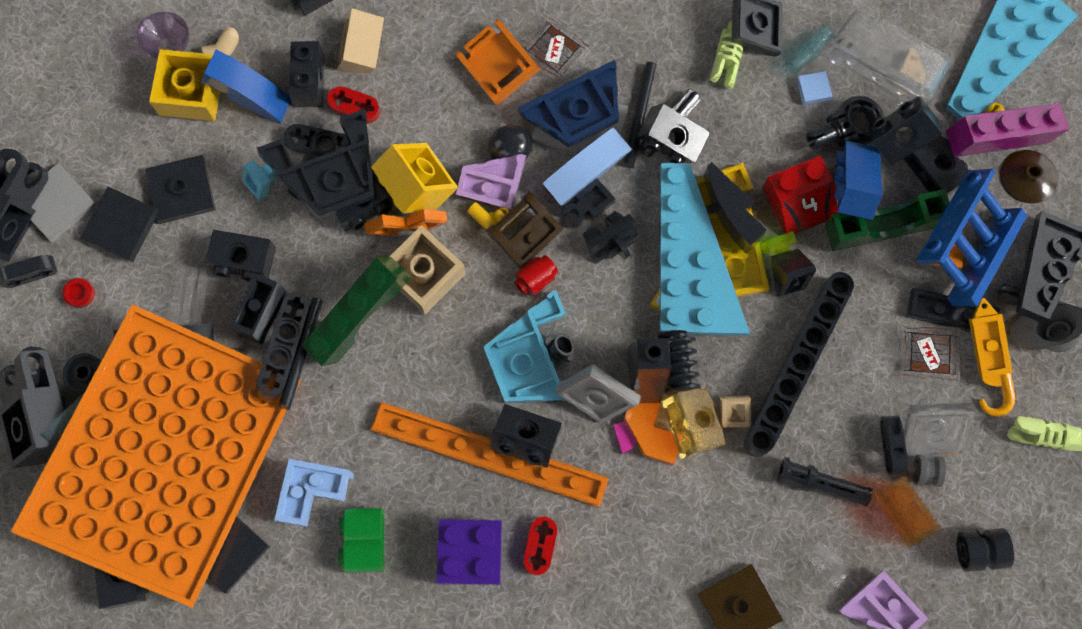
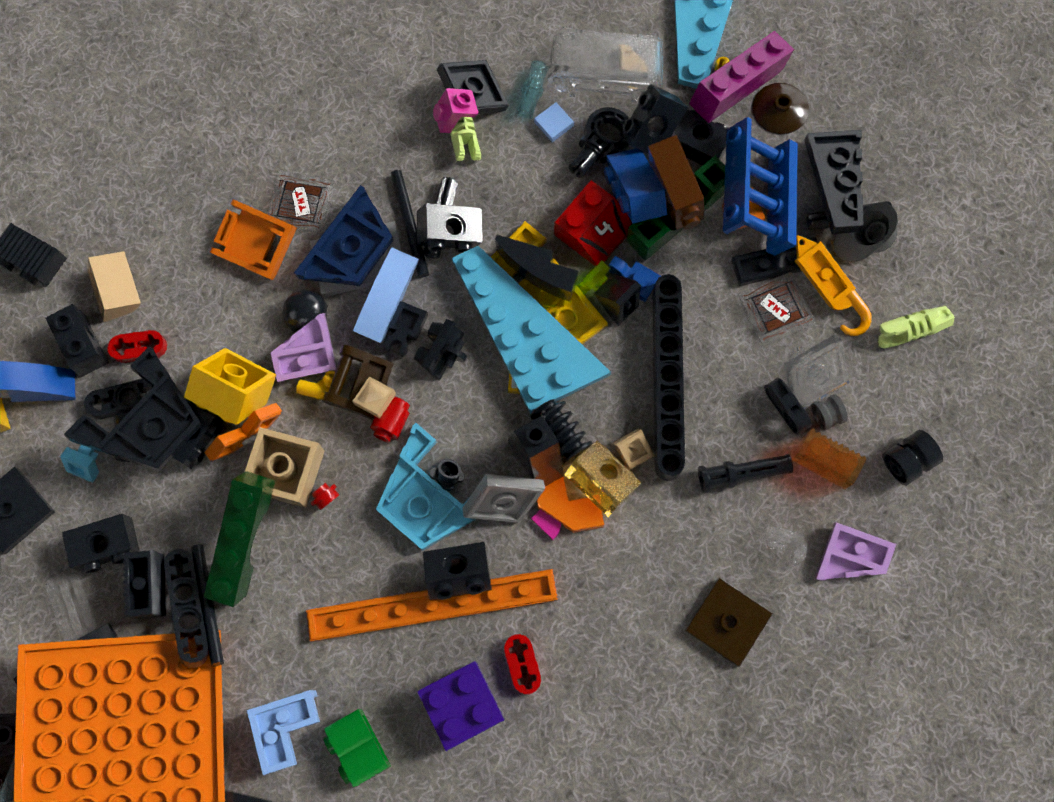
camera: 25 degrees left, 0 degrees up
(445, 312) = (324, 495): none -> red plate
(531, 249) = (374, 397): none -> tan tile
(731, 30) = (453, 106): none -> dark pink bracket
(823, 263) = (639, 273): none -> blue plate
(897, 203) = (682, 191): none -> reddish brown brick

